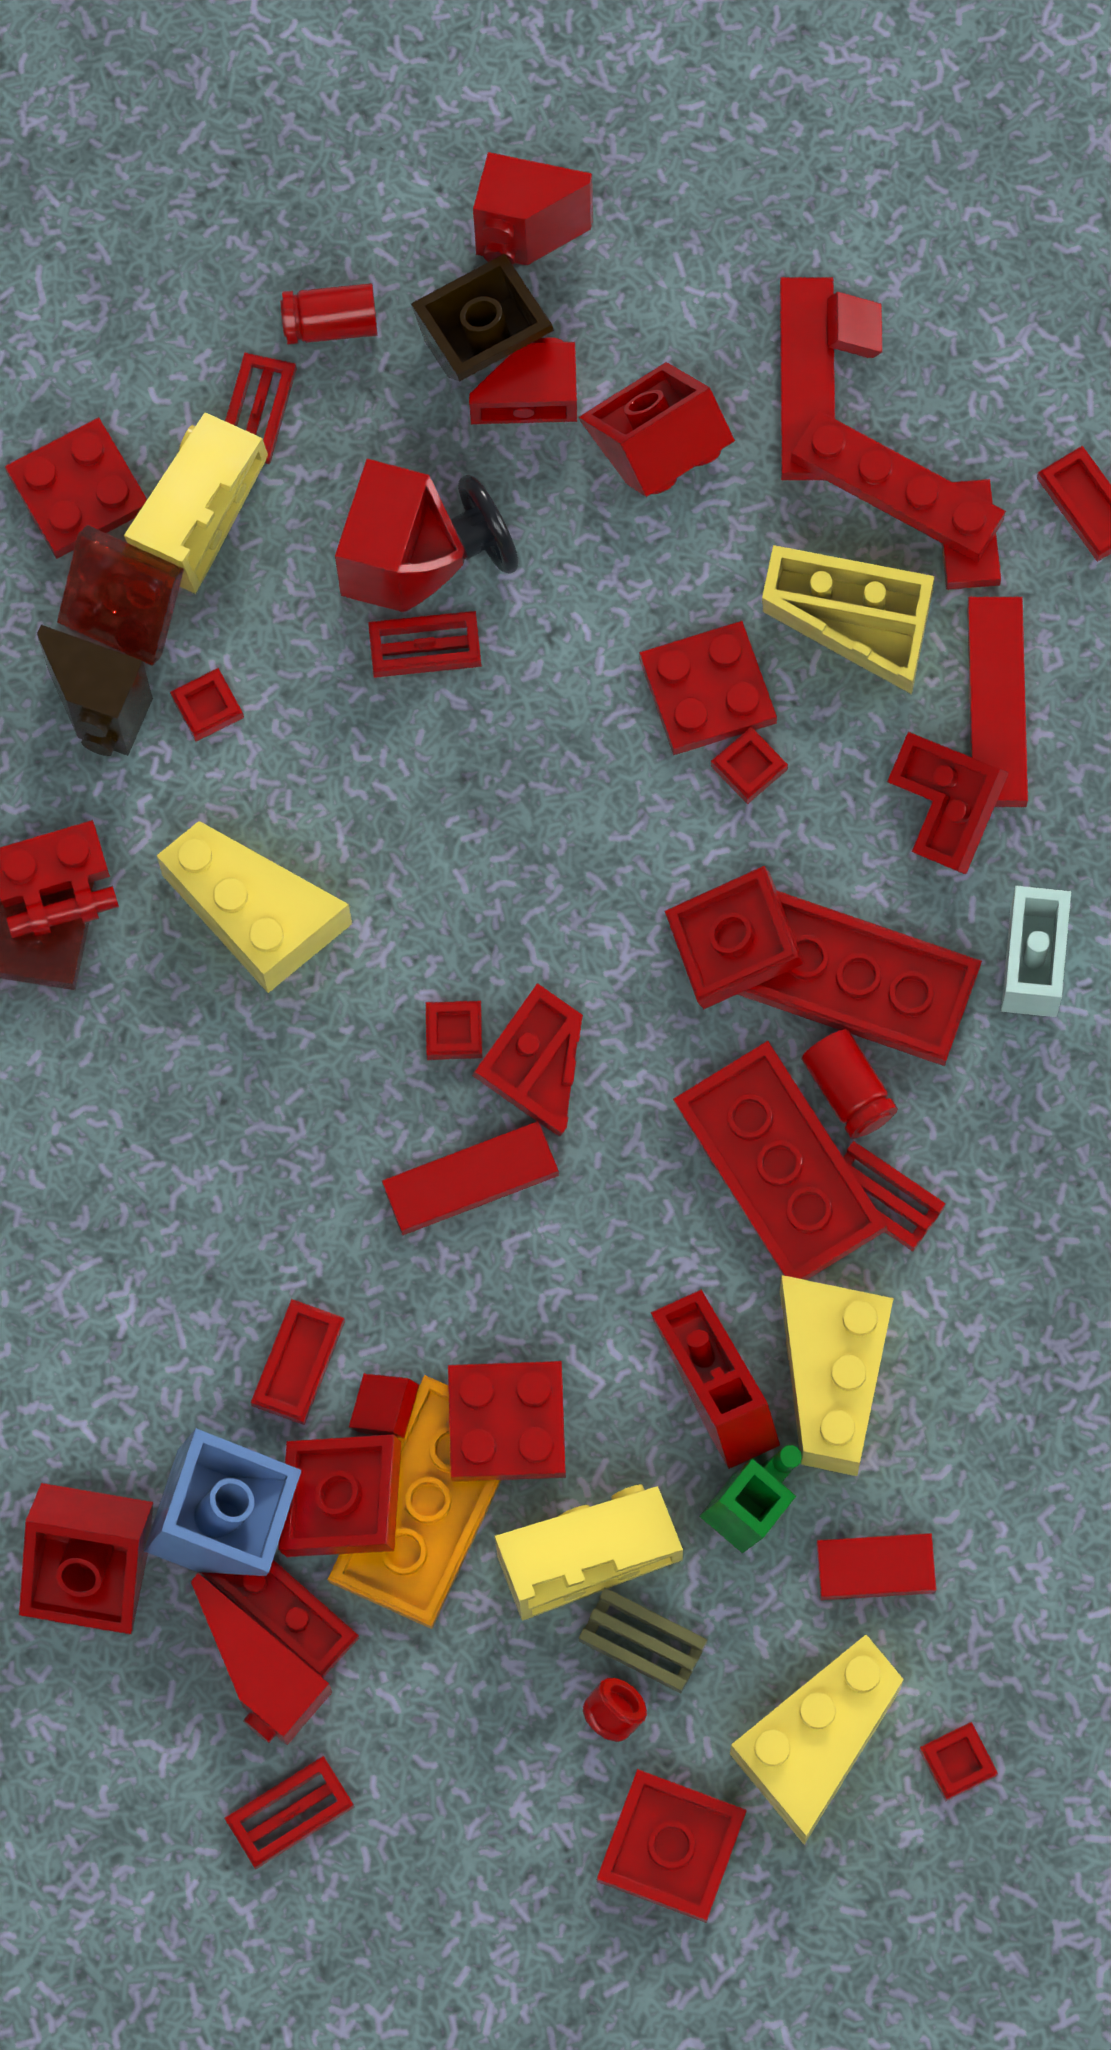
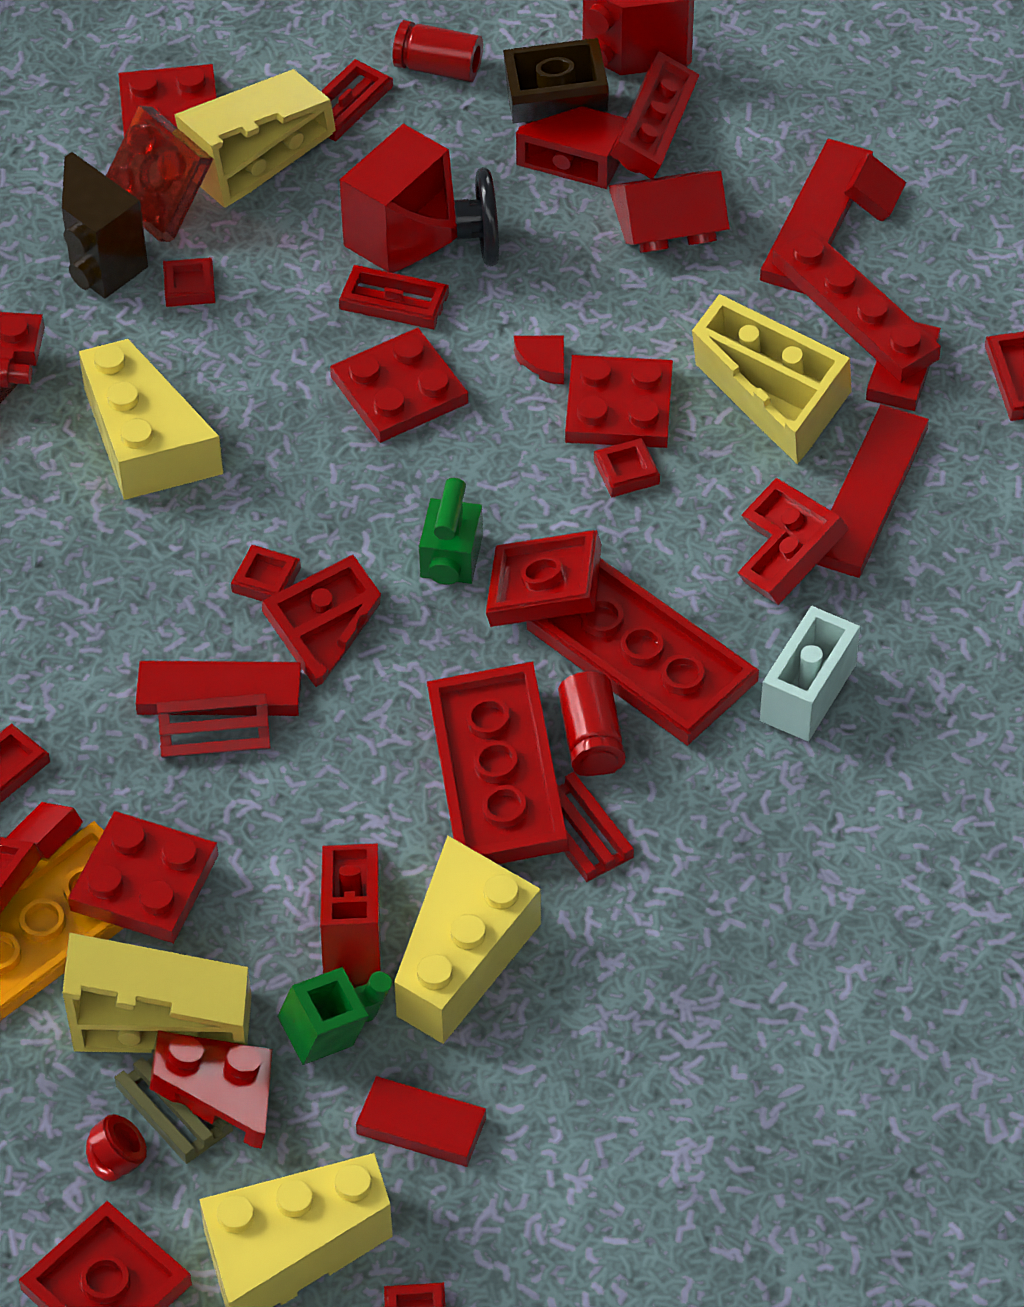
camera: 20 degrees right, 20 degrees down
(480, 751) = (399, 384): none -> red plate
(537, 1224) = (167, 729): none -> red tile
(600, 324) = (654, 116): none -> red plate
(607, 662) = (542, 356): none -> red tile
(622, 925) = (451, 536): none -> green brick
(676, 1607) = (215, 1080): none -> wing

